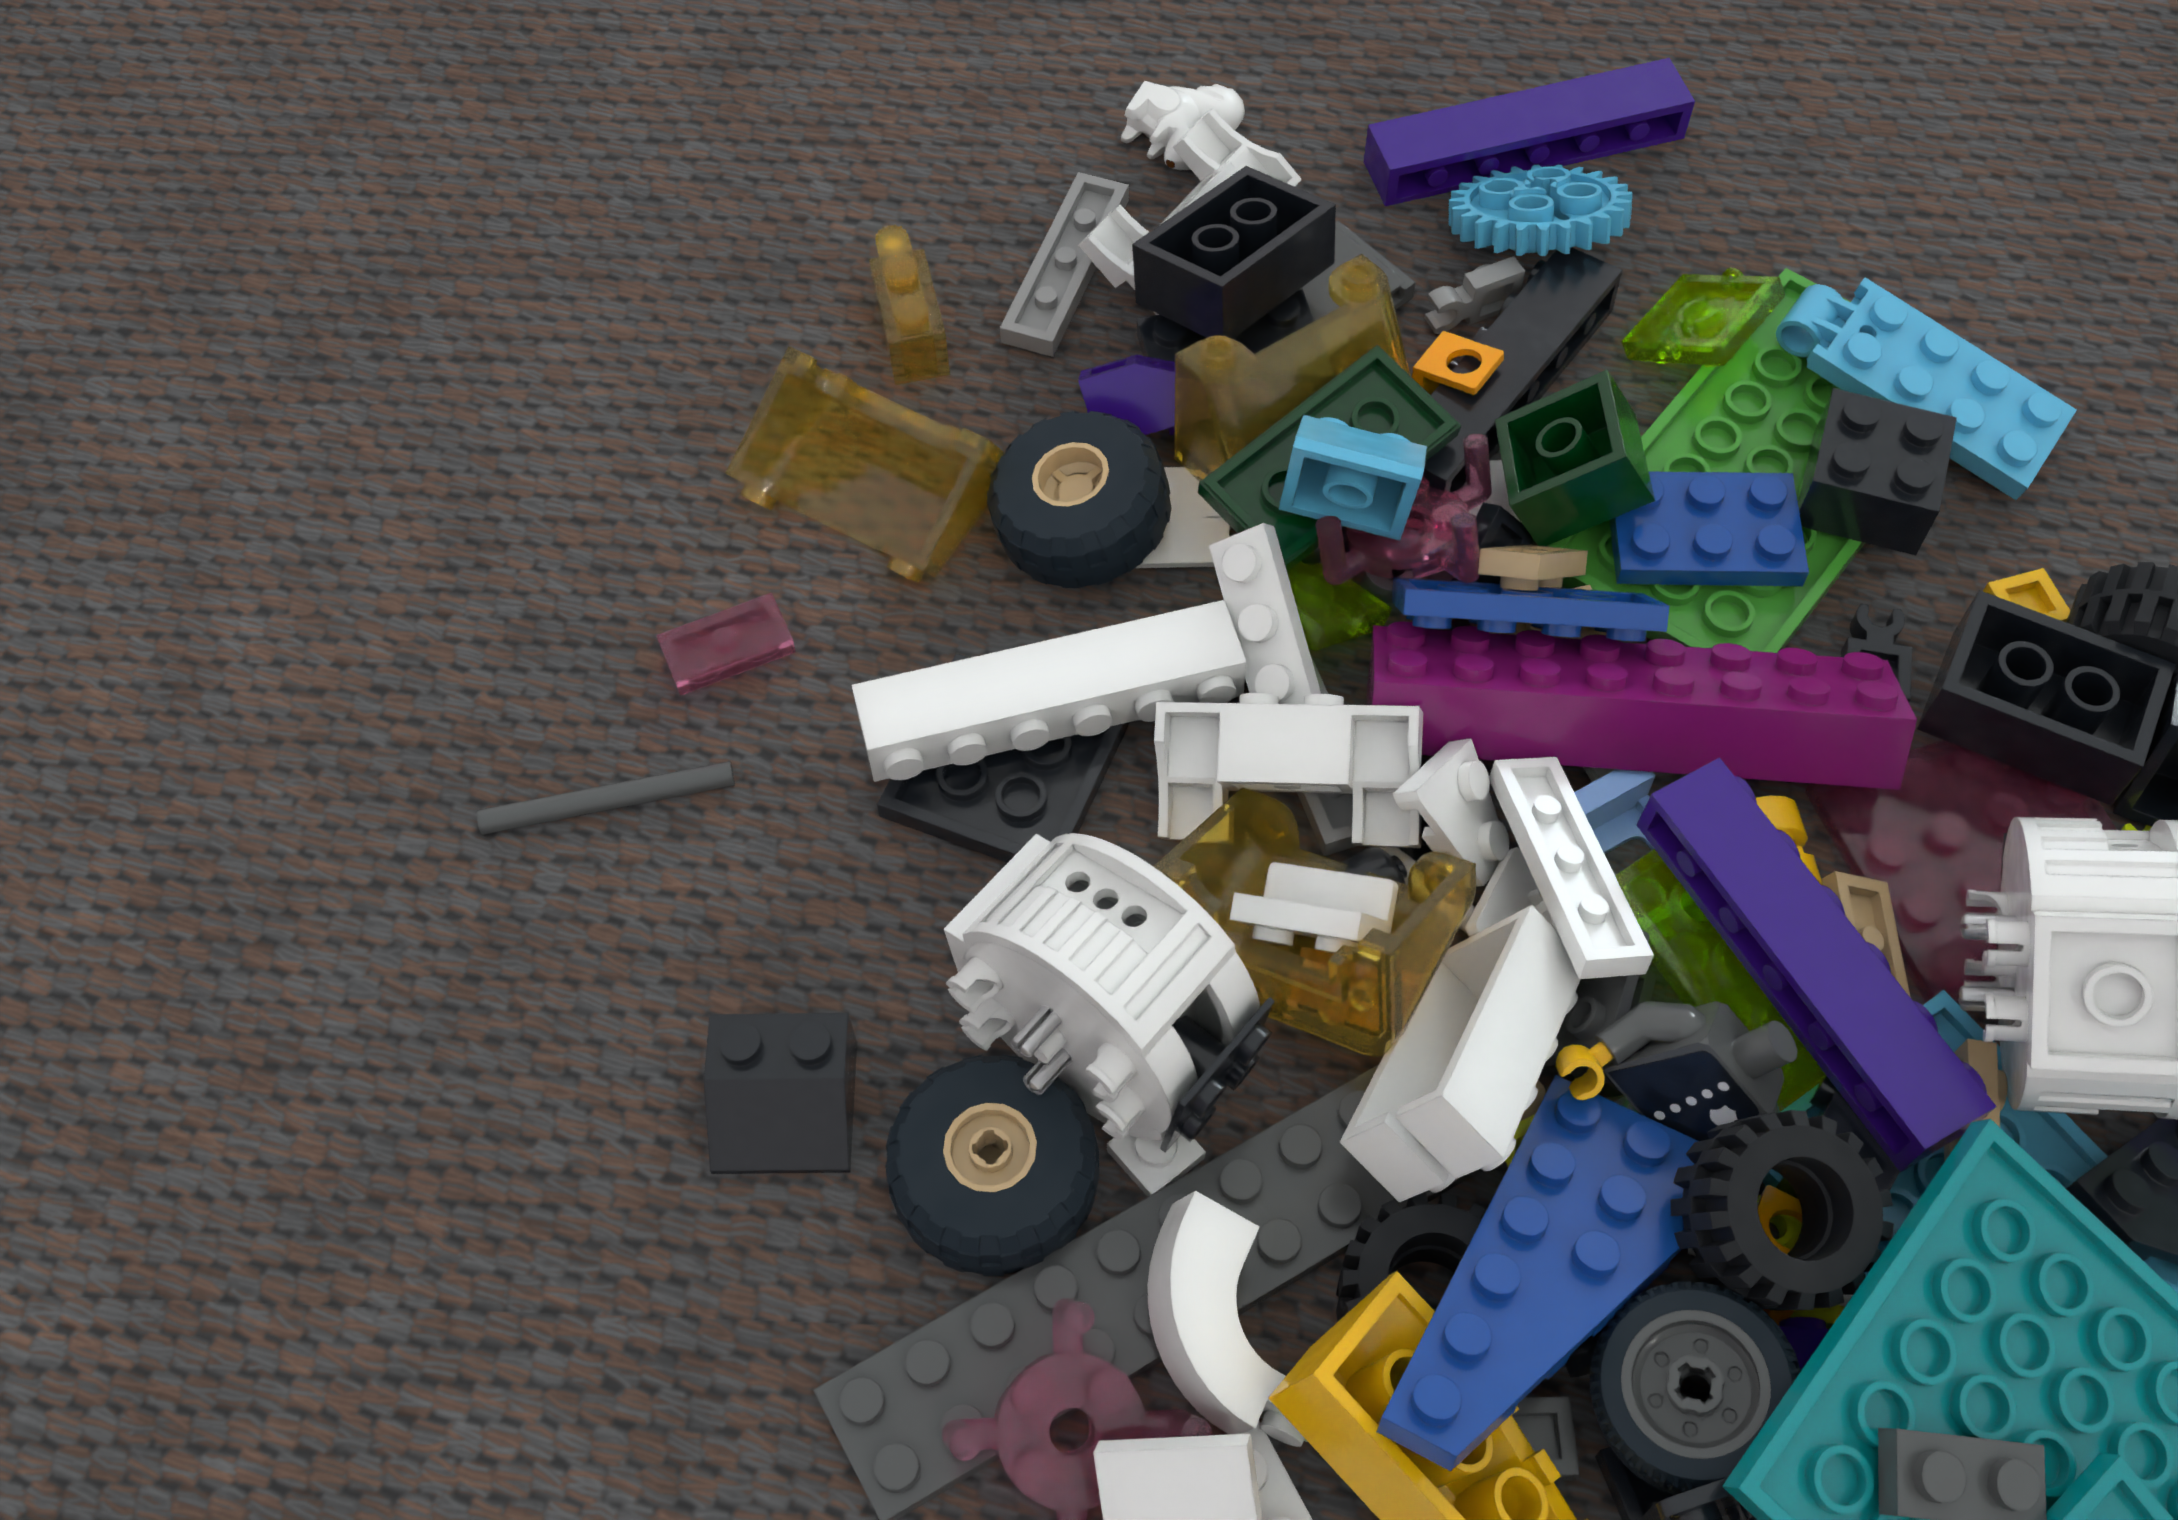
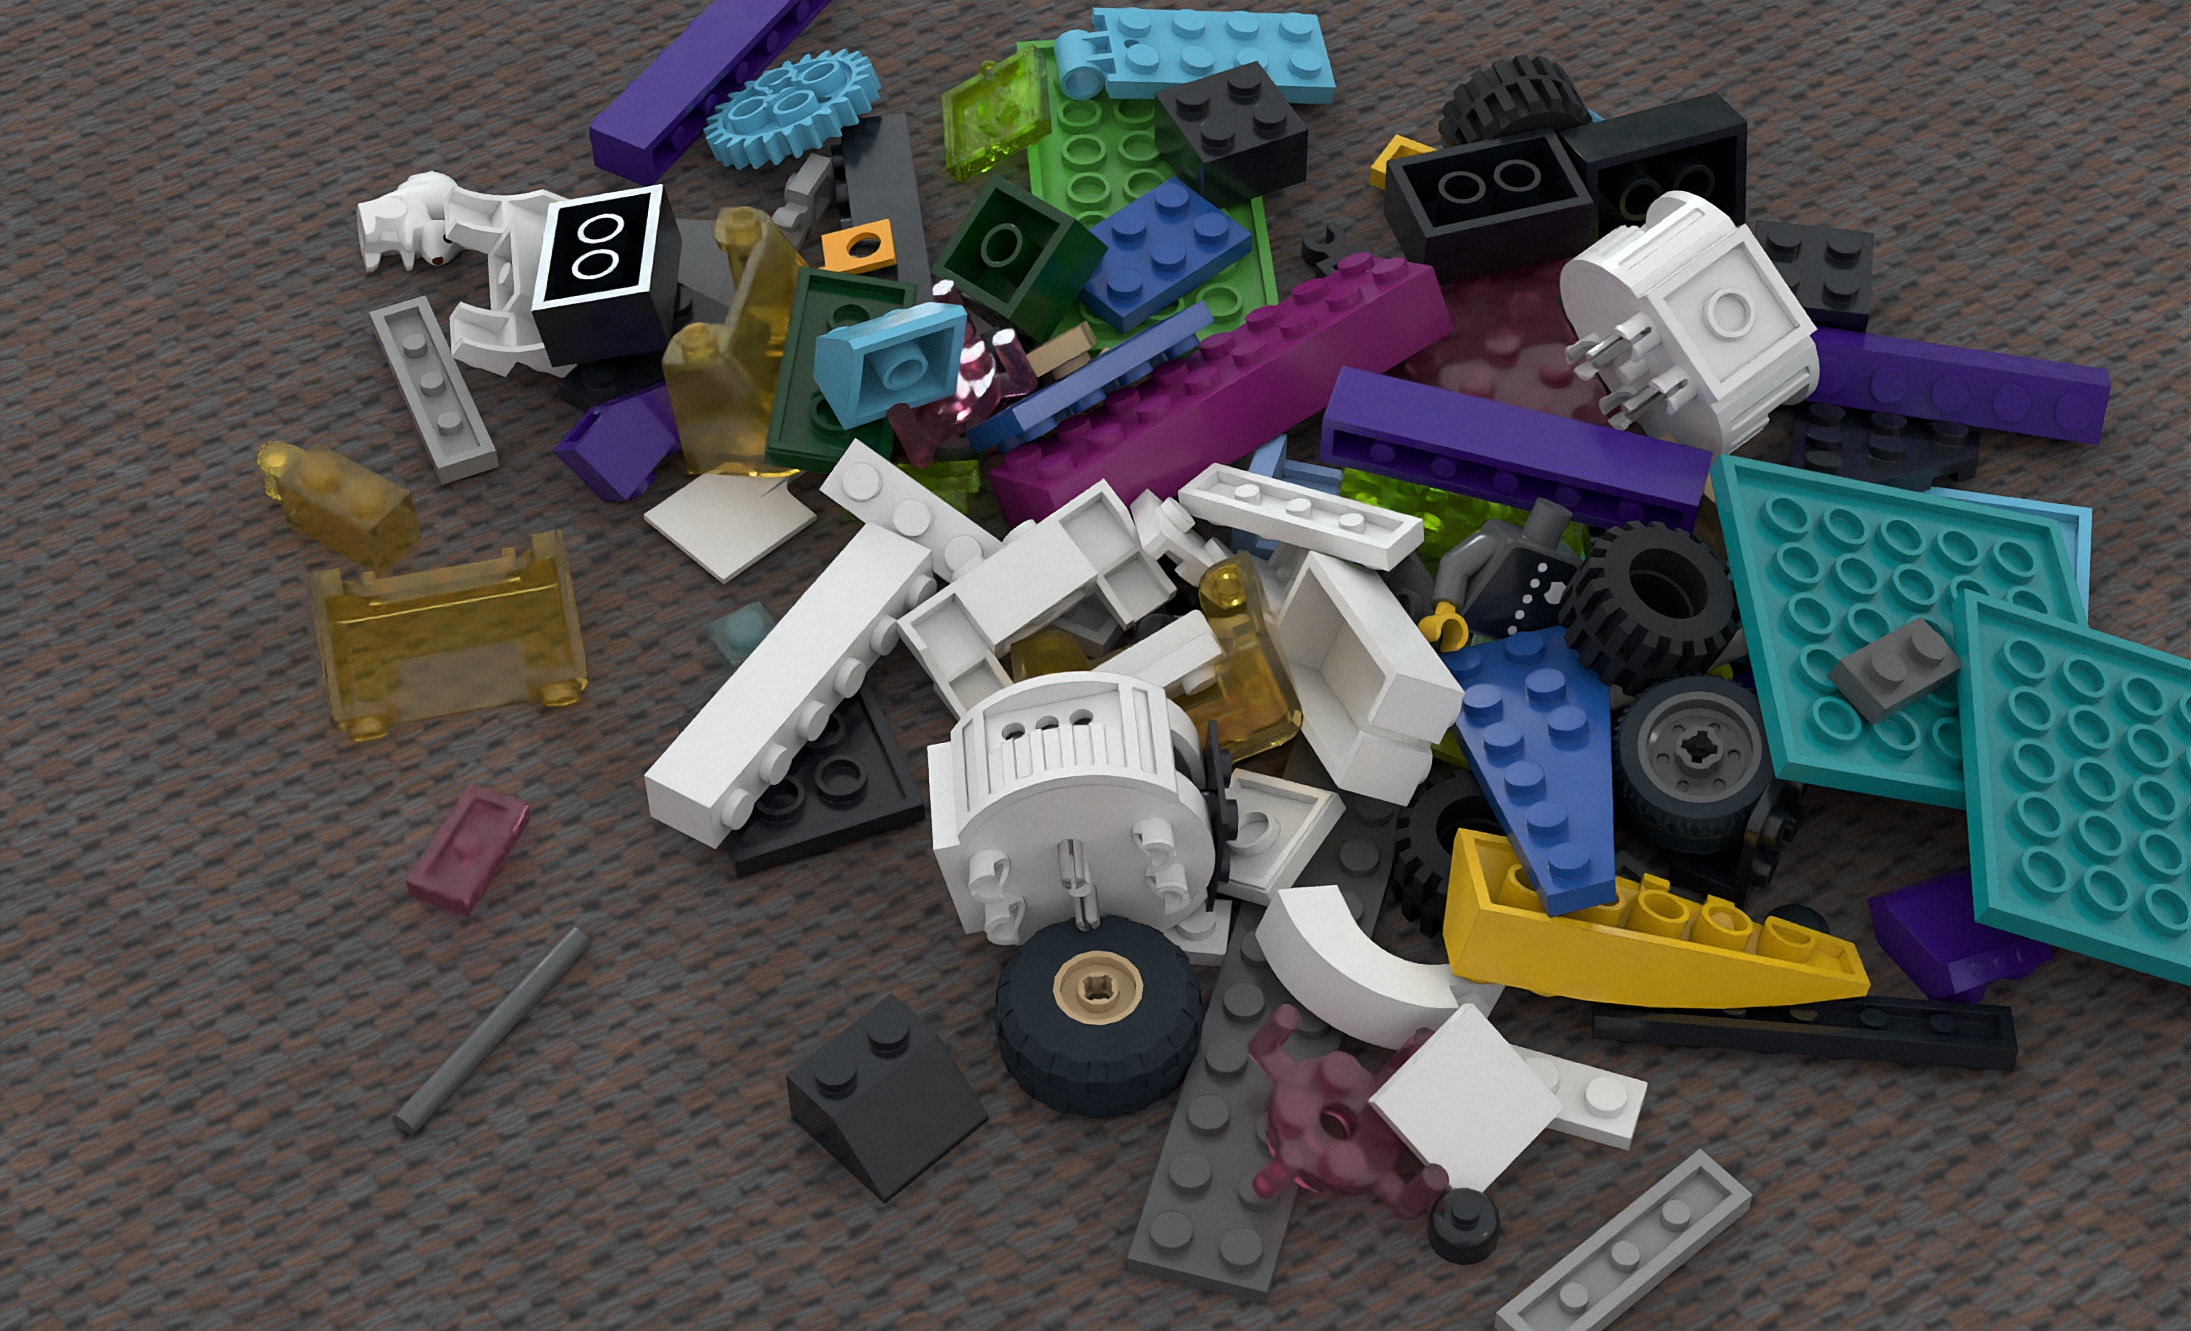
camera: 45 degrees left, 10 degrees down
(1078, 614) = (738, 634): none -> clear light blue plate
(1079, 499) = (659, 540): black wheel -> none
(1277, 1120) = (1277, 833): none -> white tile

